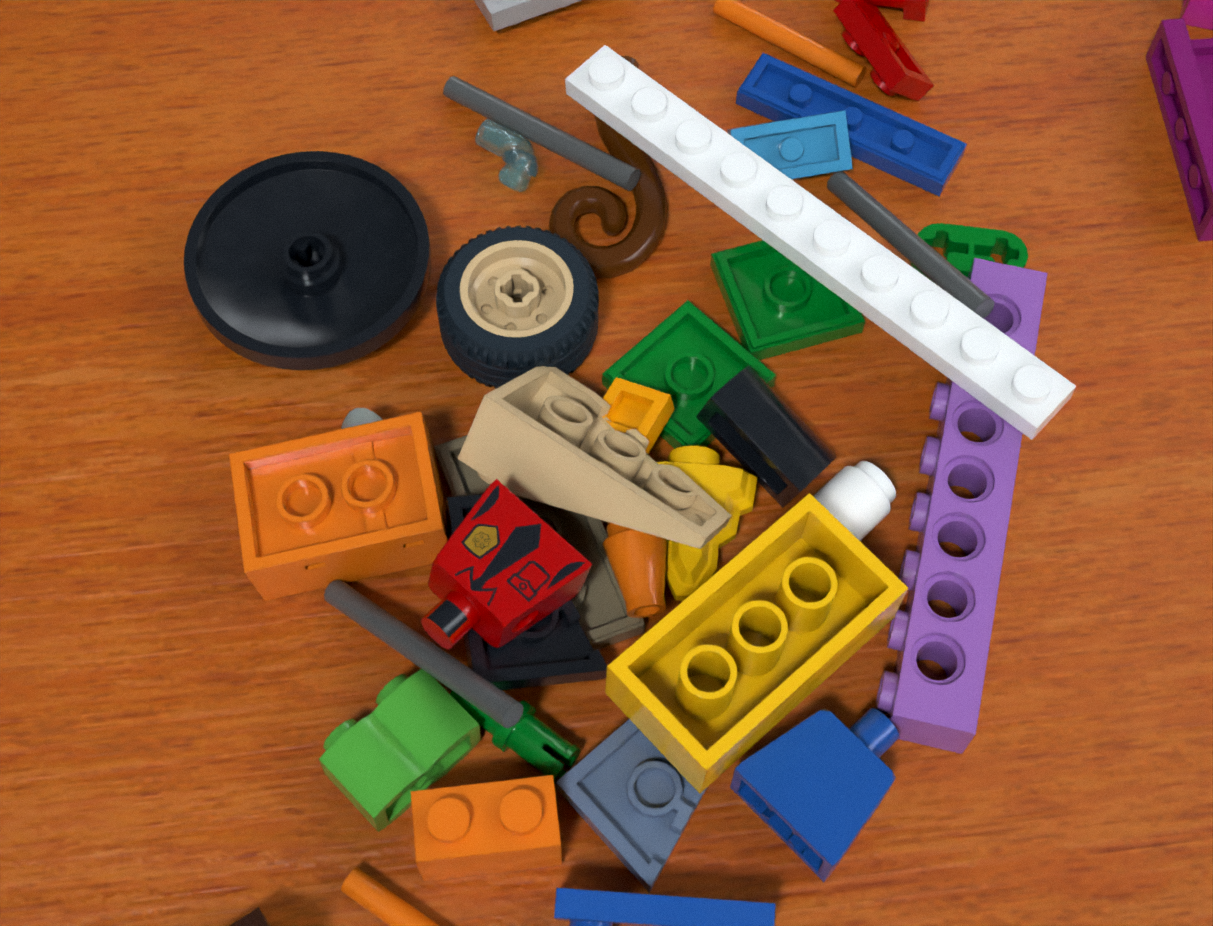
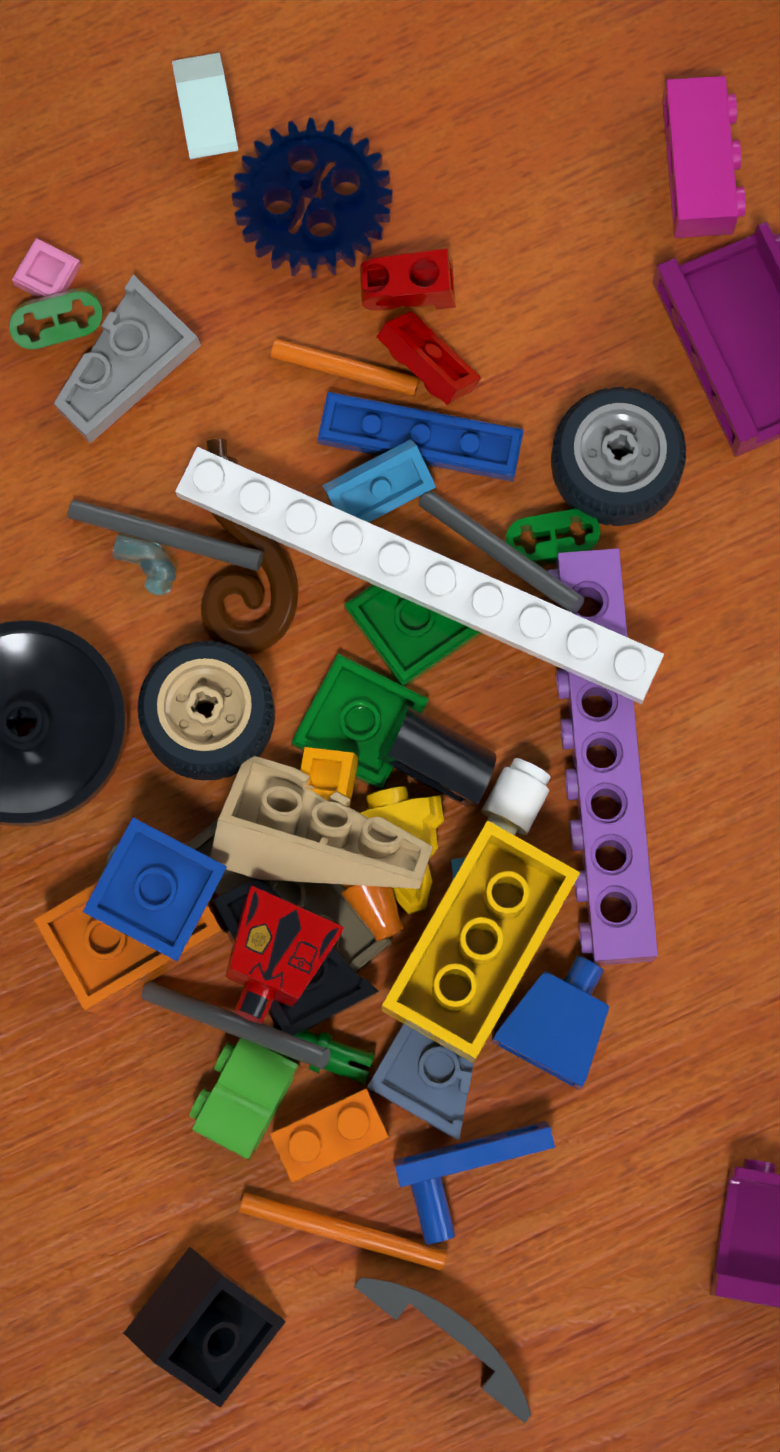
camera: 15 degrees left, 15 degrees up
(380, 453) = (154, 889): none -> blue plate
(1070, 190) = (623, 424): none -> wheel

